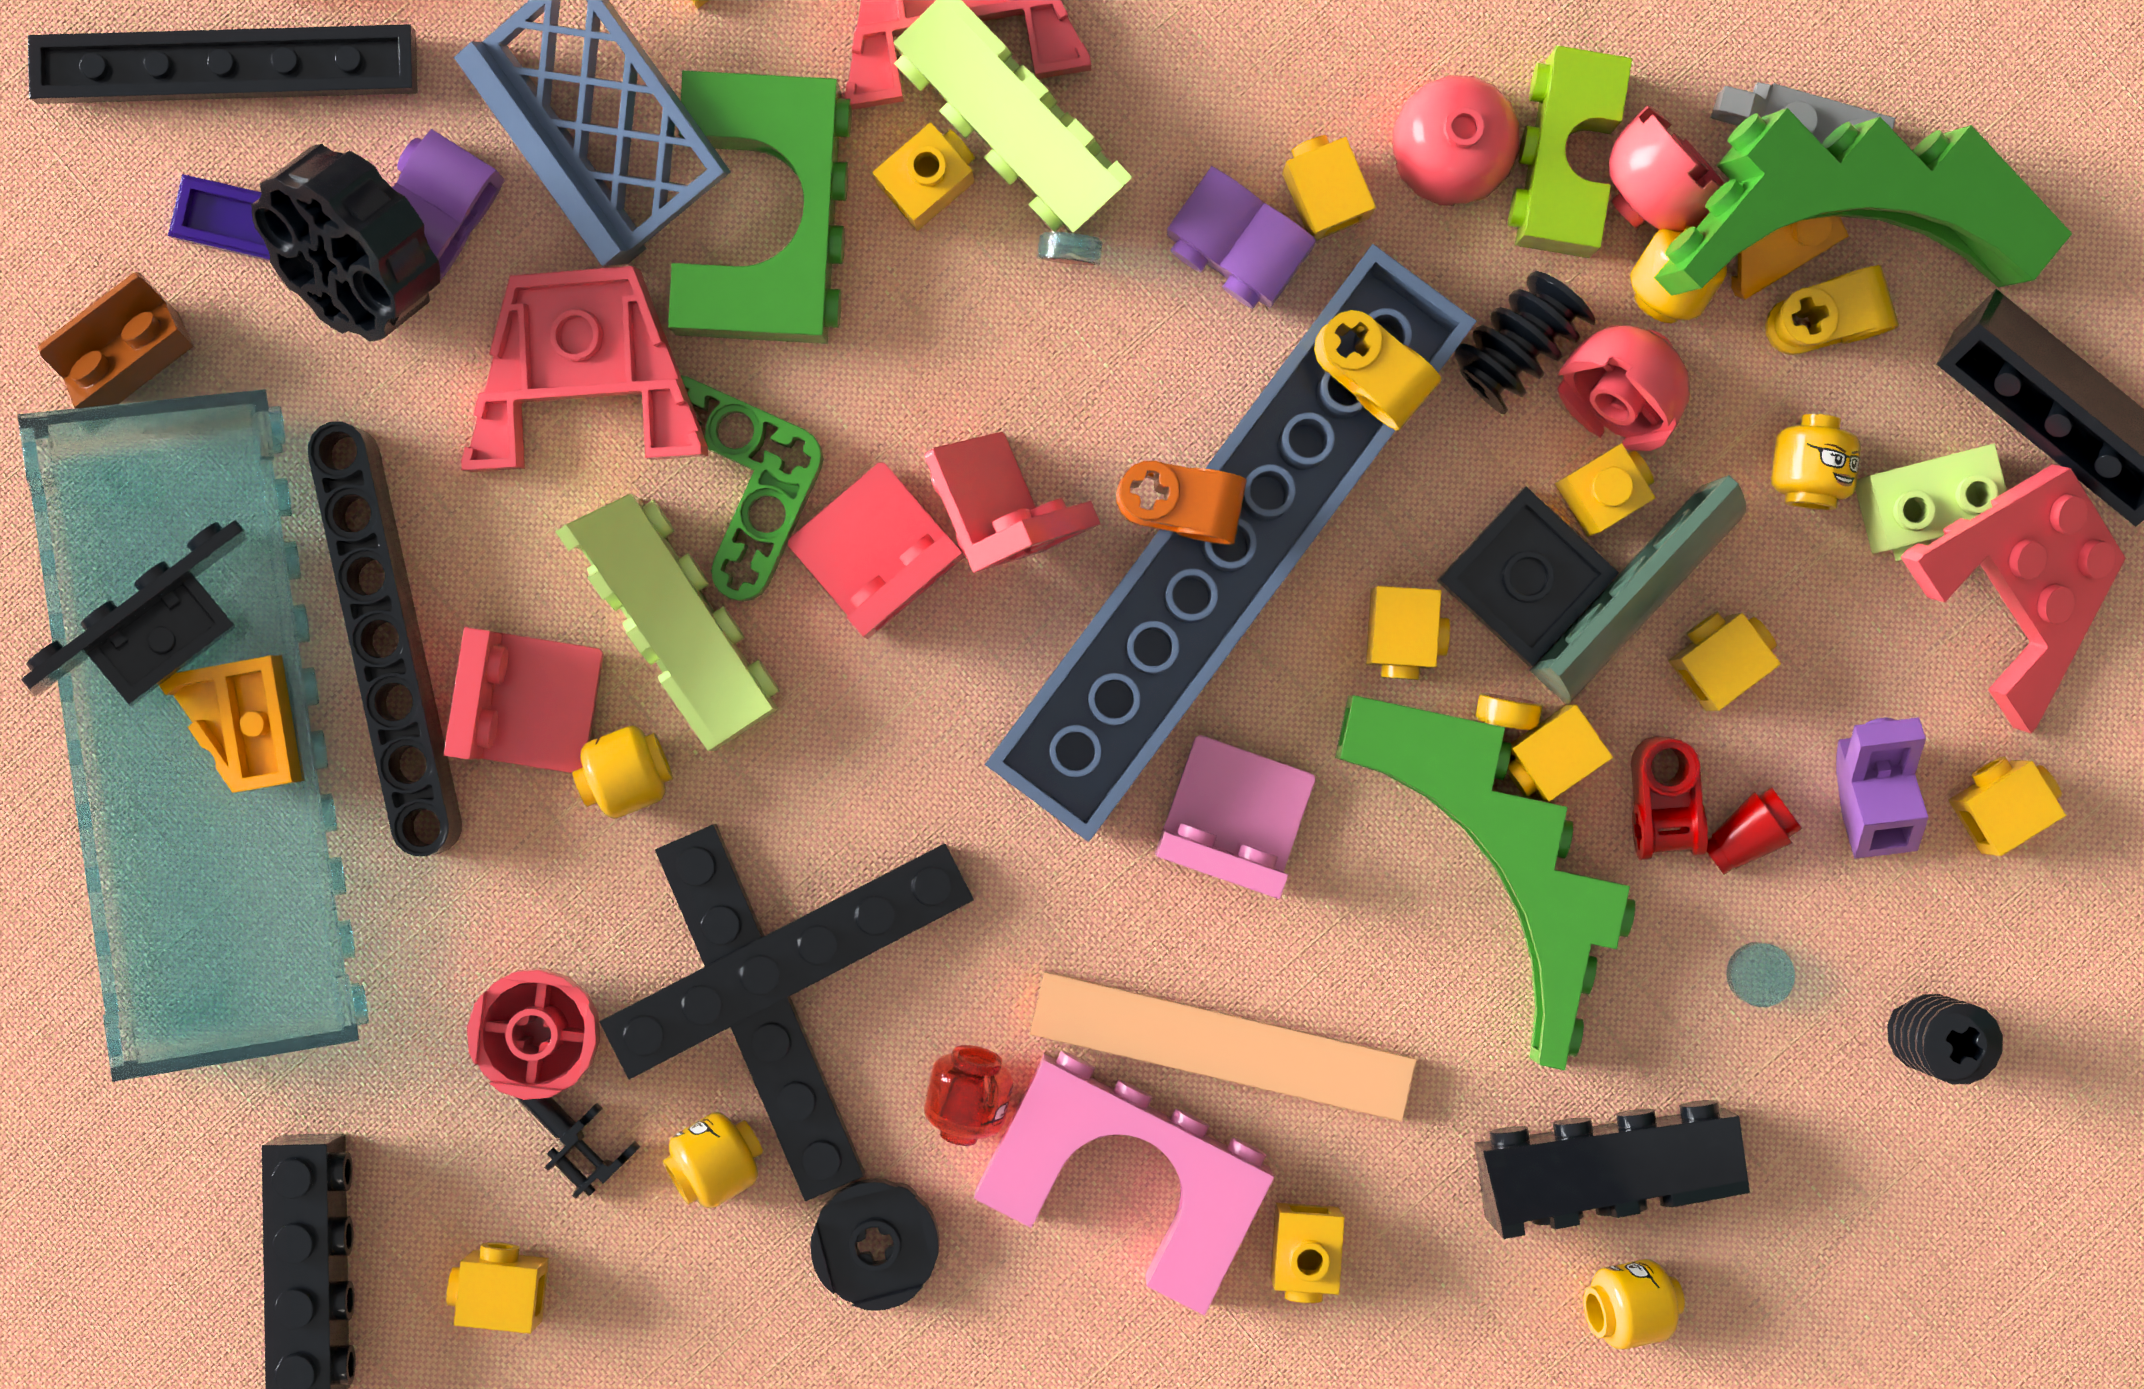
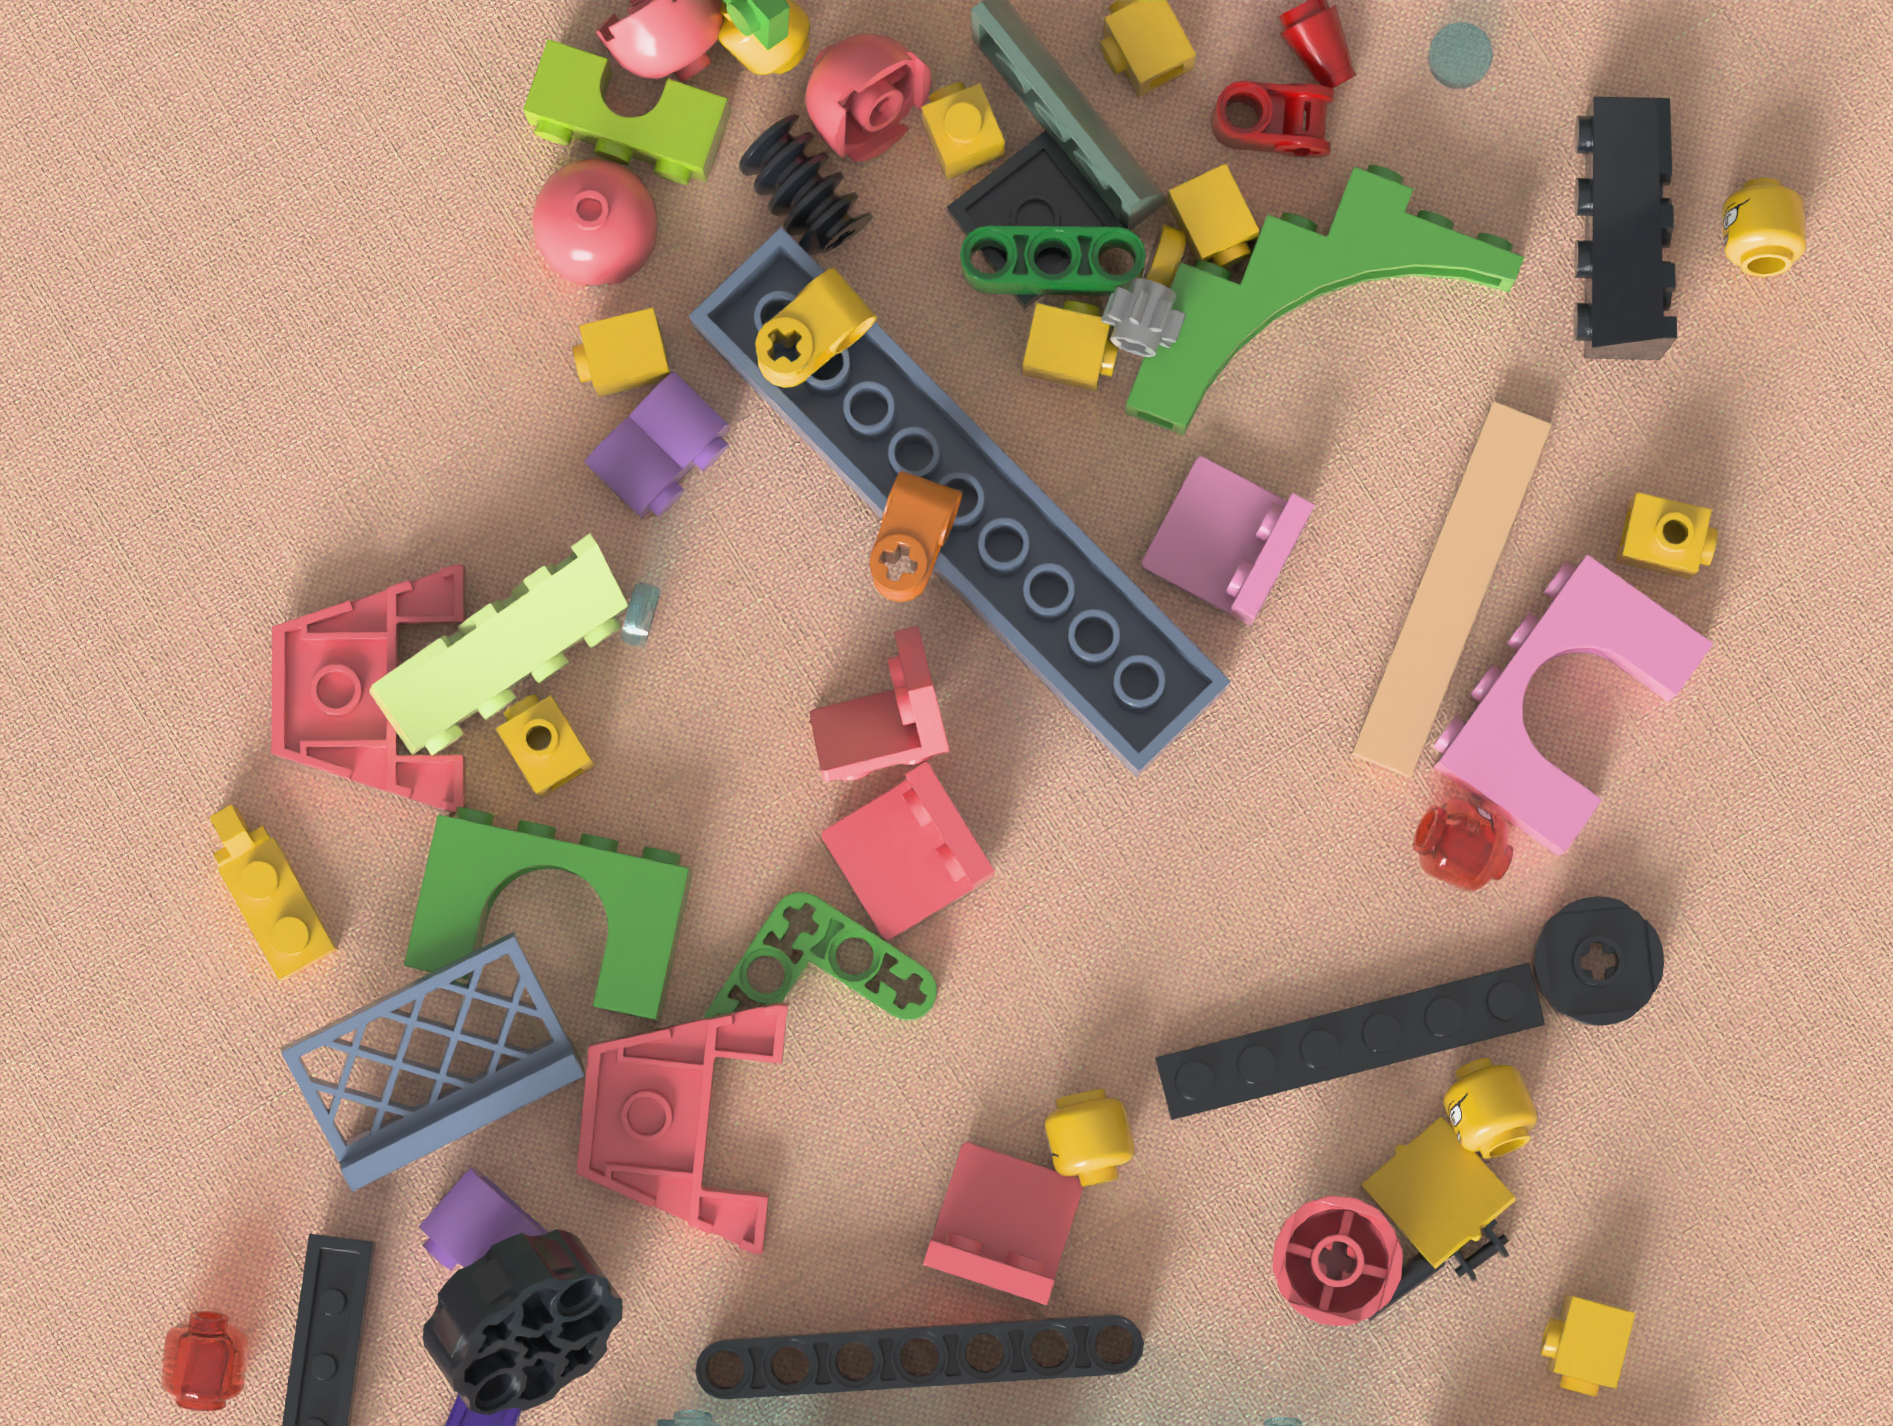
camera: 75 degrees left, 5 degrees down
(623, 1124) = (1438, 1192): none -> yellow piece
(672, 618) = (947, 1064): yellowish green wedge -> none
(786, 961) = (1302, 1003): black plate -> none
(1442, 698) = (1143, 317): none -> light grey gear
(1499, 569) = (1024, 243): none -> green beam

